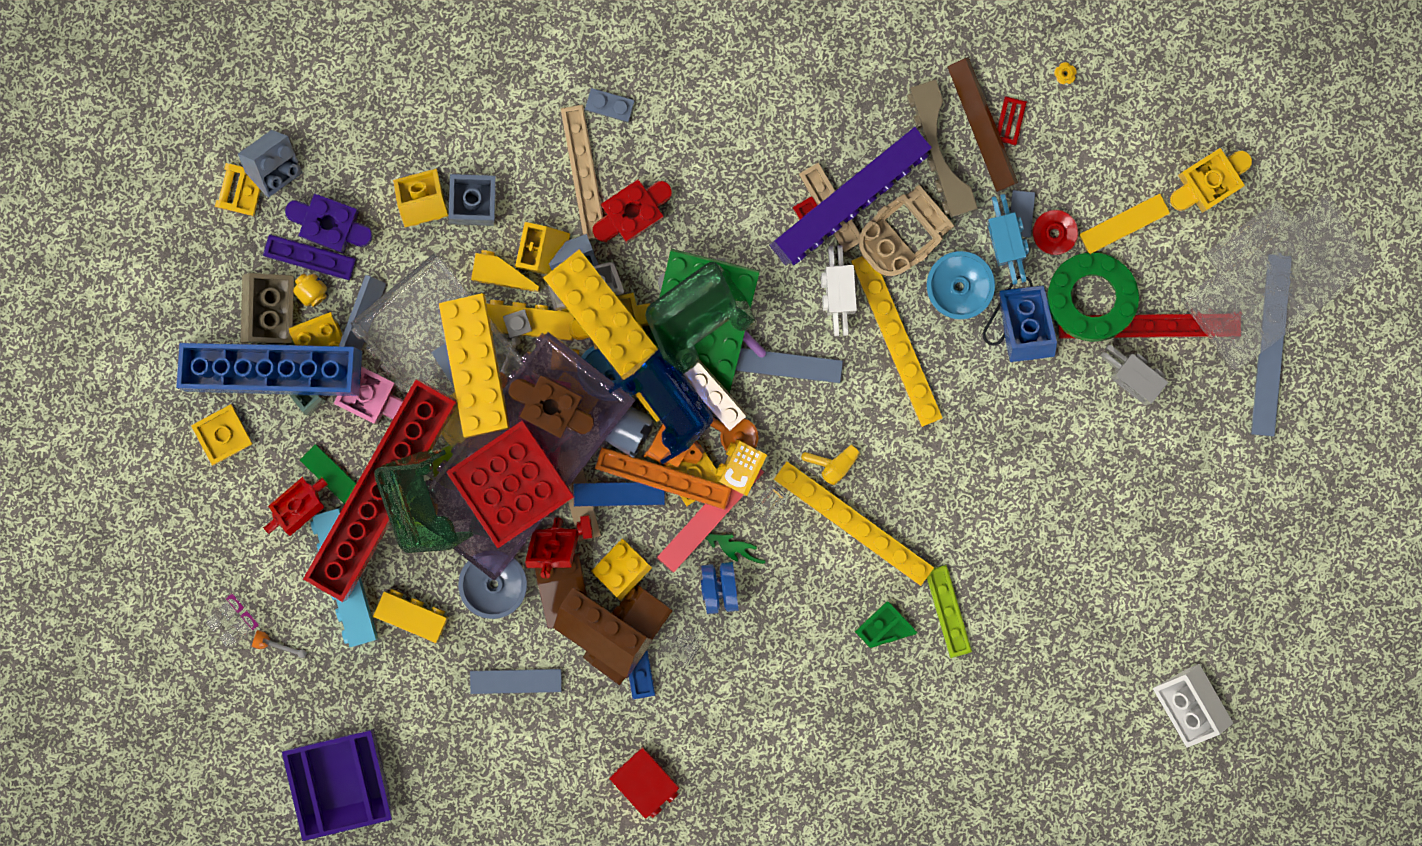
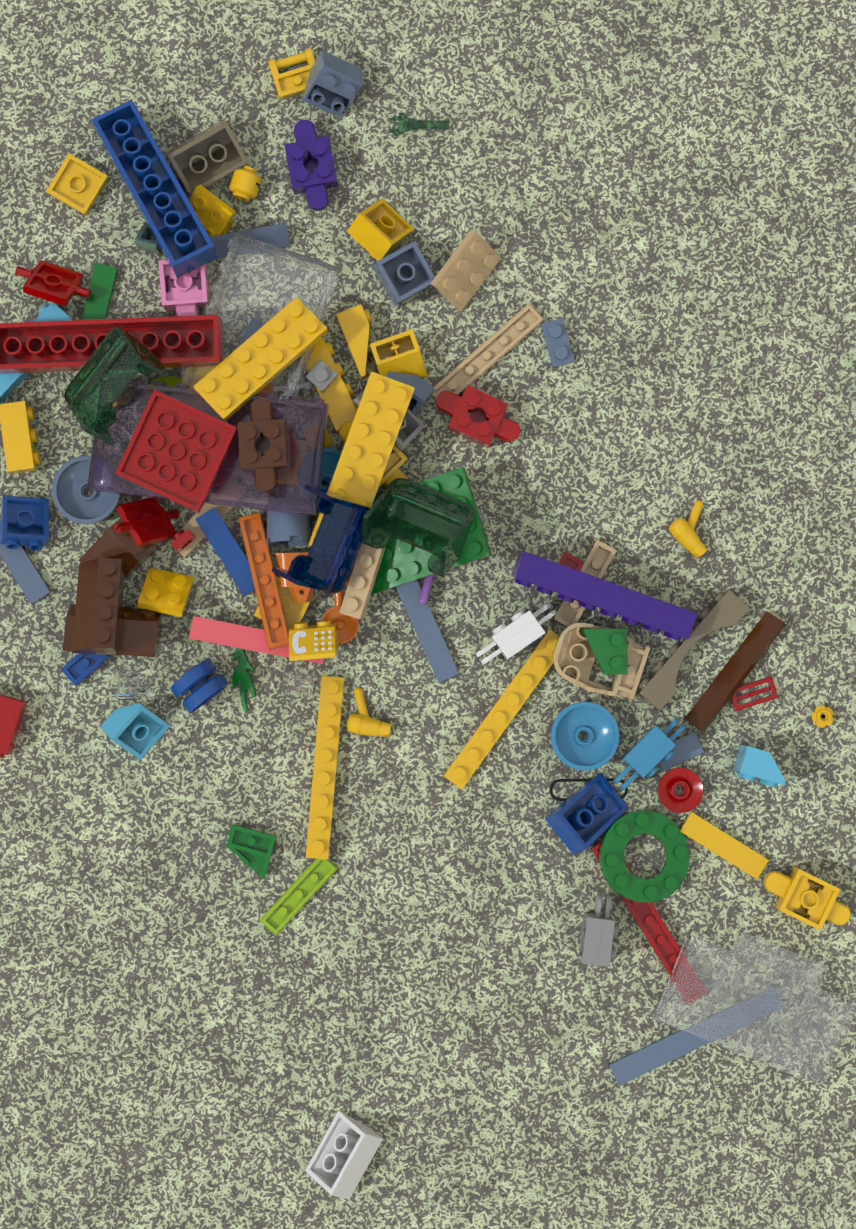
camera: 55 degrees right, 0 degrees up
(309, 257) = (273, 167): dark purple tile -> none
(342, 120) = (406, 124): none -> clear green piece
(488, 654) = (24, 522): none -> blue plate
(500, 145) = (465, 270): none -> tan plate
(722, 666) = (135, 728): none -> medium azure slope
(839, 95) = (685, 534): none -> yellow piece
(899, 219) = (609, 648): none -> green wing
(1072, 152) = (760, 764): none -> medium azure slope

